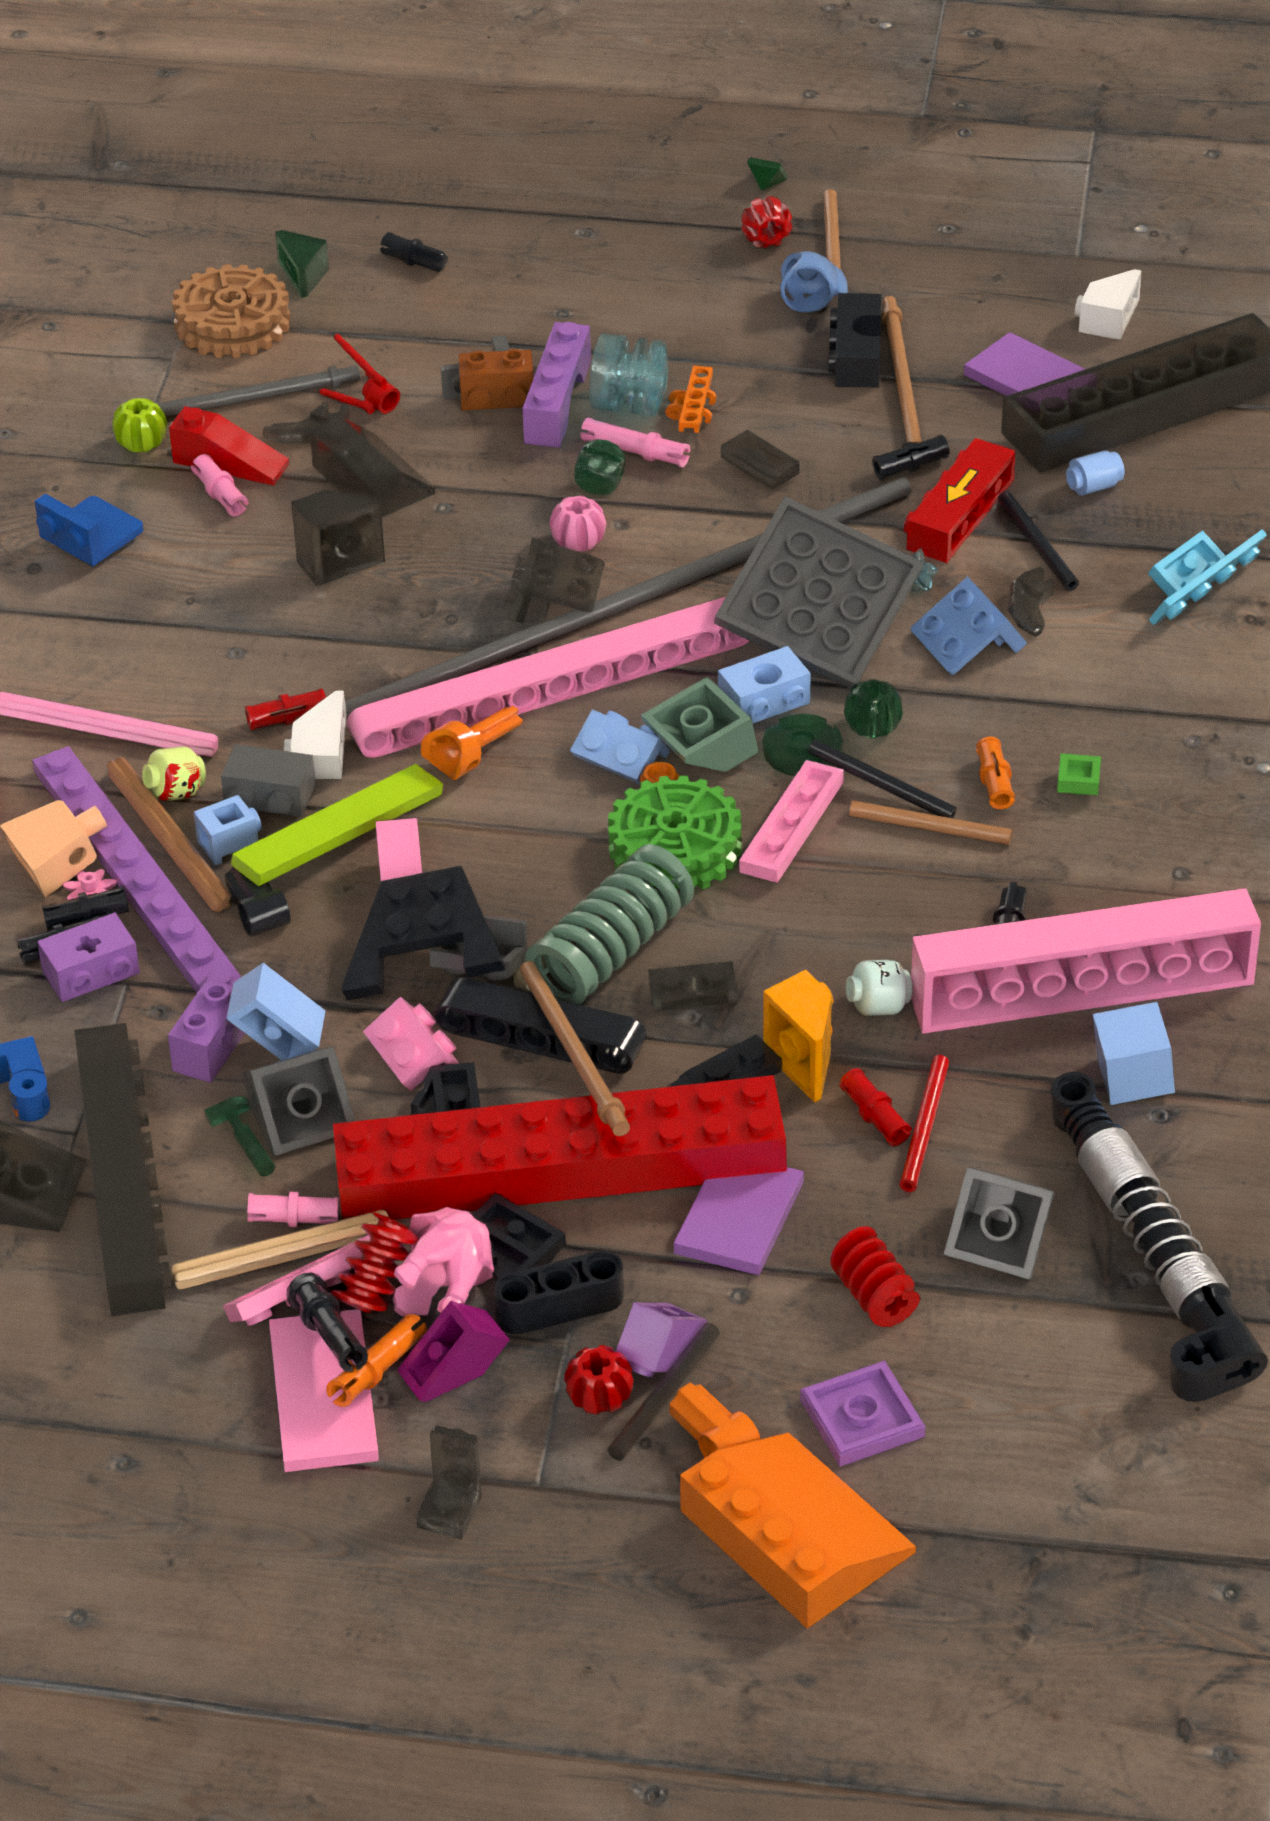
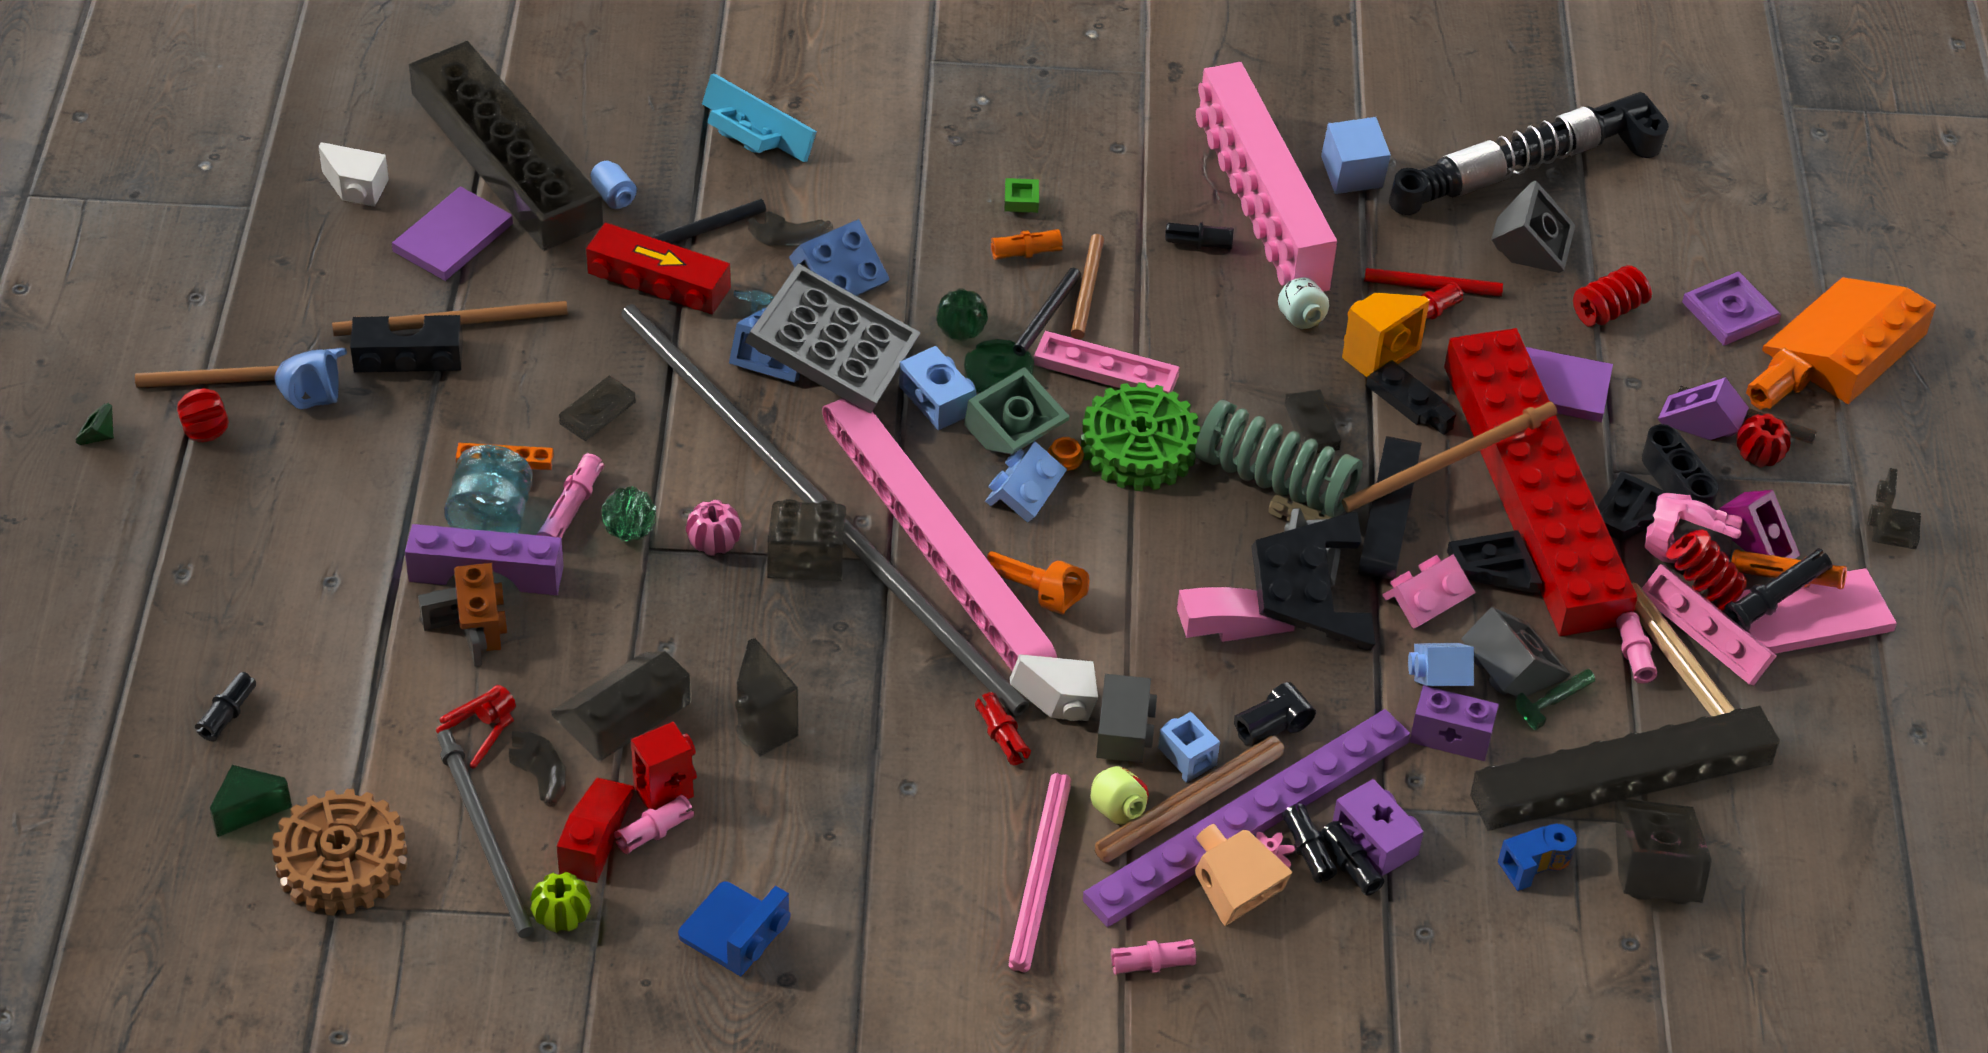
camera: 100 degrees left, 5 degrees up
(265, 472) = (663, 765): none -> red brick
(336, 824) = (1175, 660): lime tile -> none
(910, 456) = (589, 306): black pin -> none

